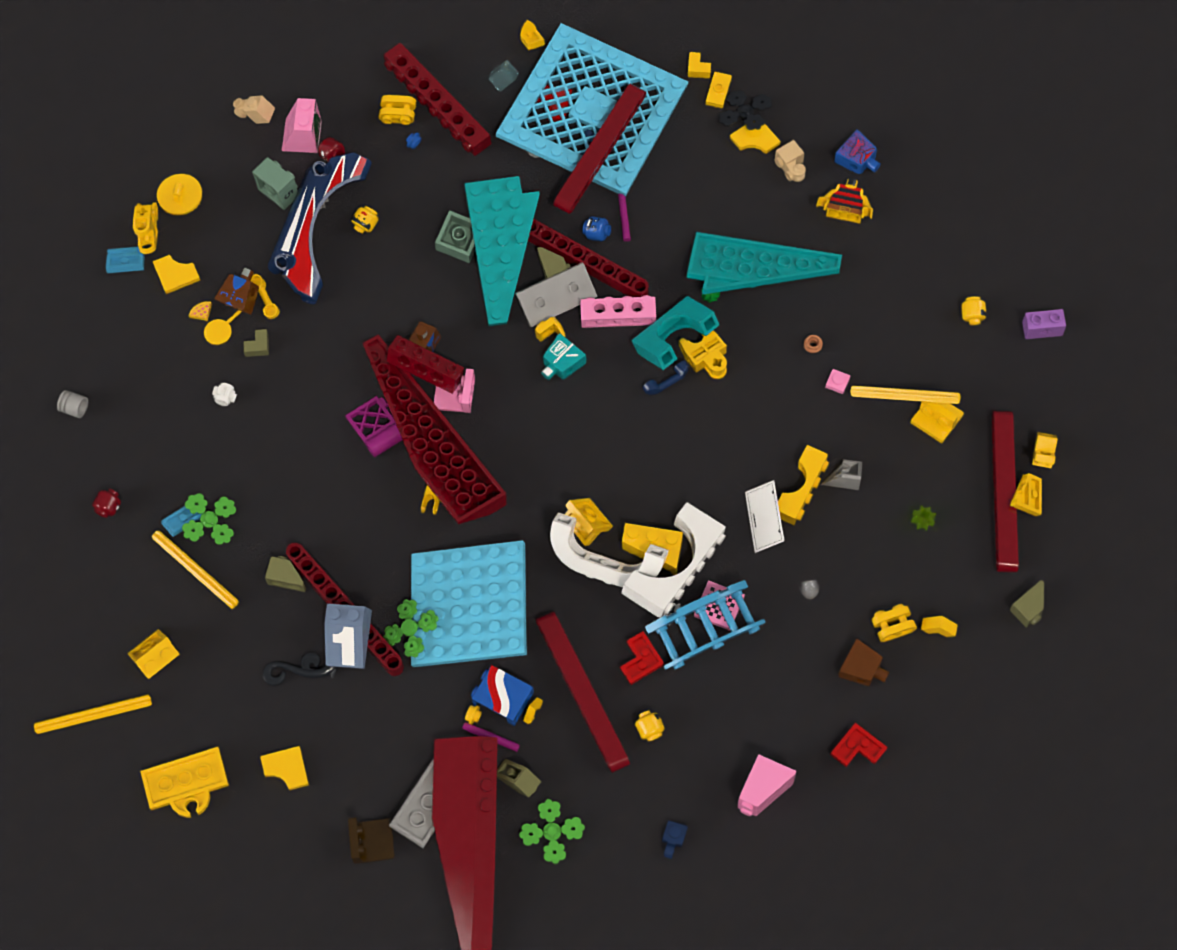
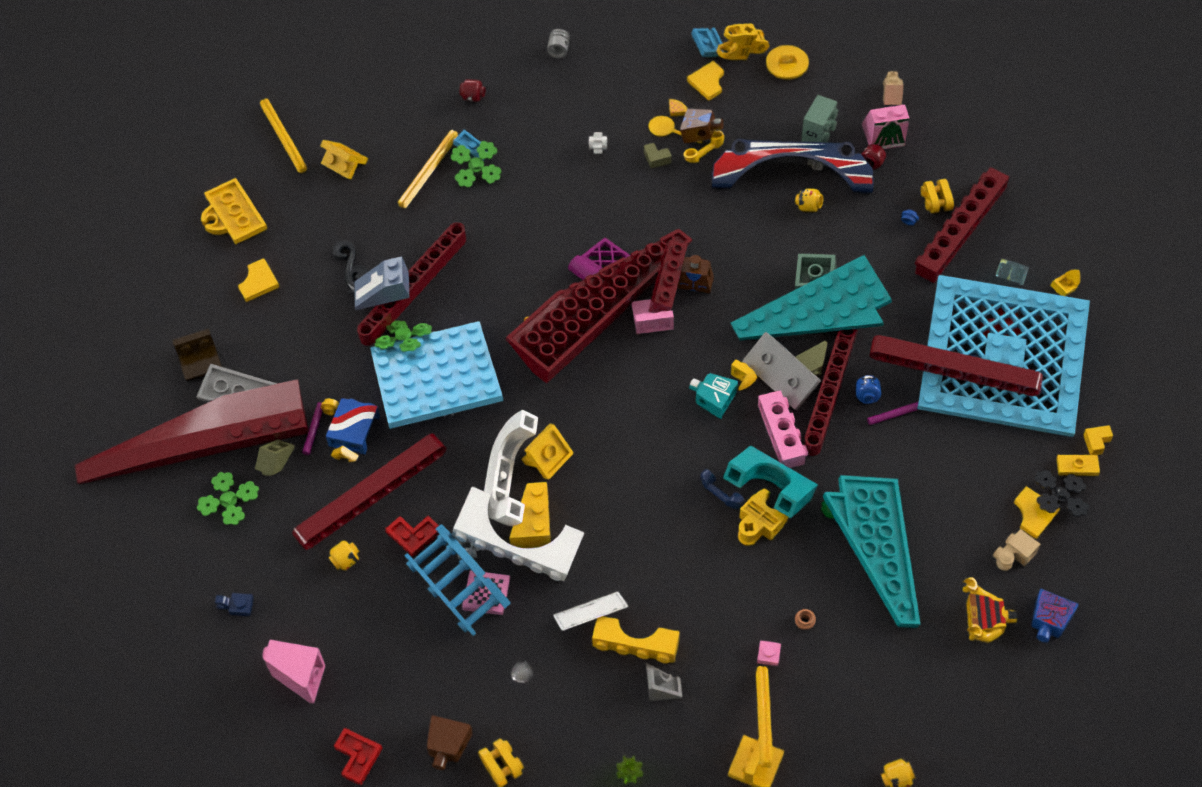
camera: 75 degrees right, 10 degrees down
(283, 574) = (435, 227): olive slope -> none

